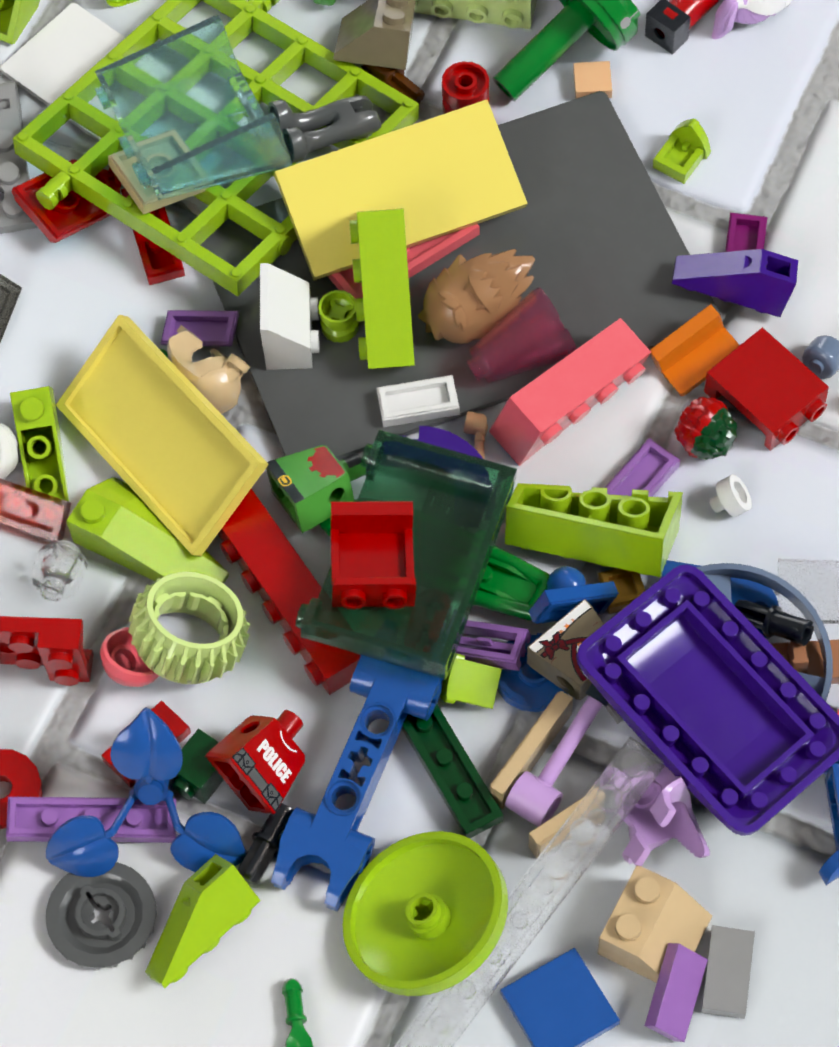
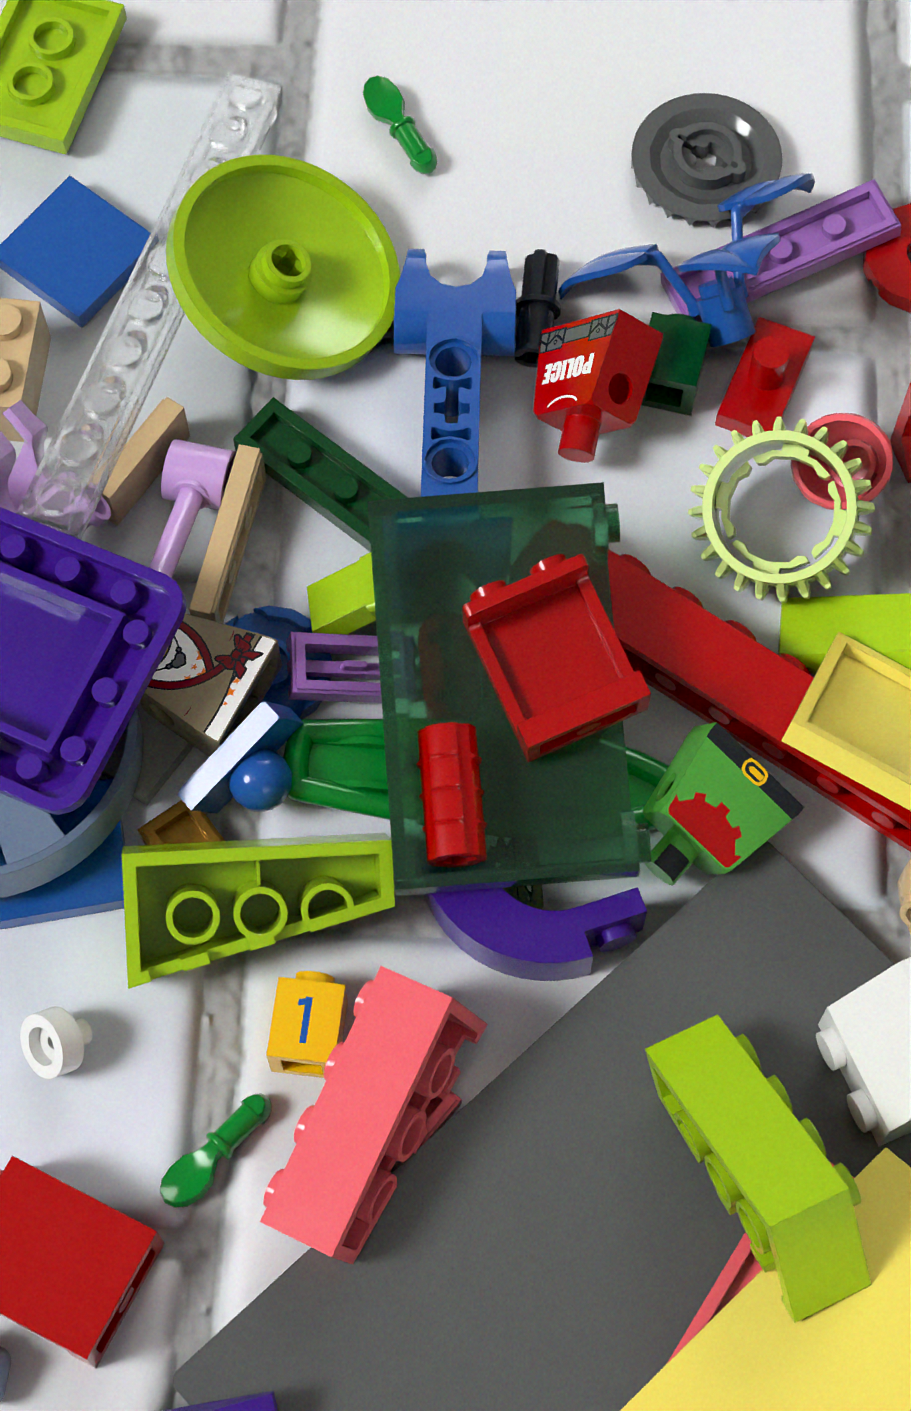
camera: 155 degrees right, 5 degrees up
(204, 911) = (572, 181): lime slope -> none
(338, 316) = (825, 1100): lime wheel -> none
(418, 401) = (619, 1019): white tile -> none
(463, 510) = (451, 795): none -> red axle
(475, 295) = (595, 1227): medium nougat head -> none
(477, 425) = (510, 1027): light nougat hand -> none
(522, 341) = (481, 1169): clear pink cone -> none
(588, 455) = (306, 1023): none -> yellow brick
(644, 471) = (216, 1034): medium lavender tile -> none
(671, 416) = (195, 1172): none -> green piece
(693, 350) = (192, 1289): orange panel -> none
(706, 429) = (126, 1136): piece -> none

